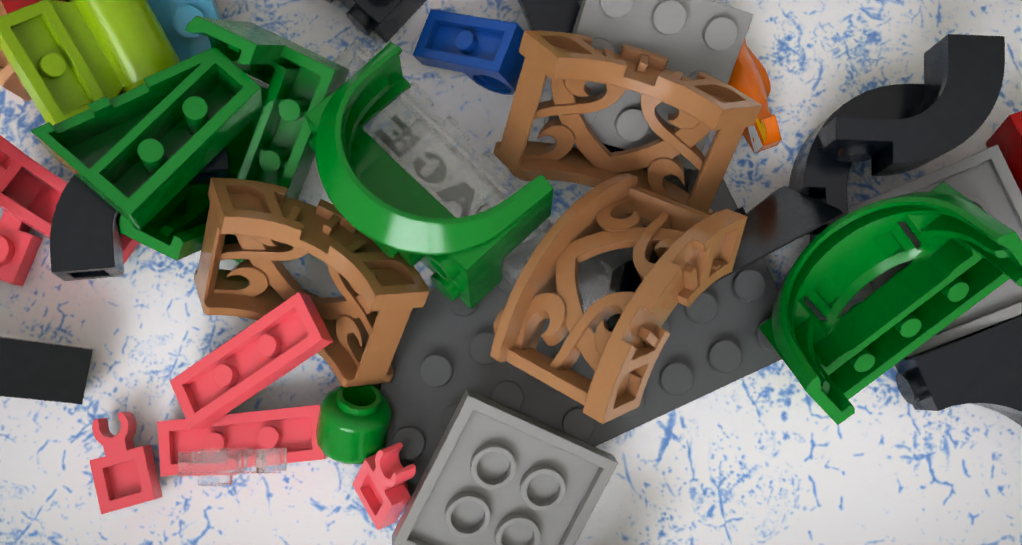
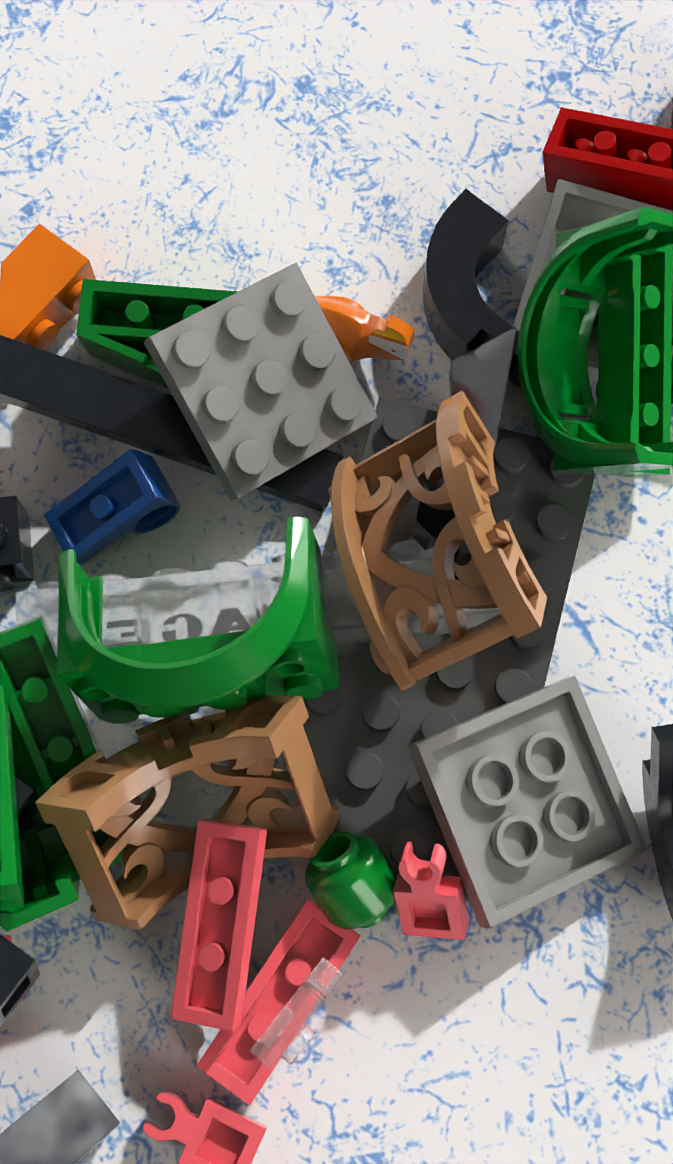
camera: 50 degrees left, 10 degrees down
(570, 63) = (212, 427): medium nougat fence -> none
(959, 93) = (499, 178): black arch -> none

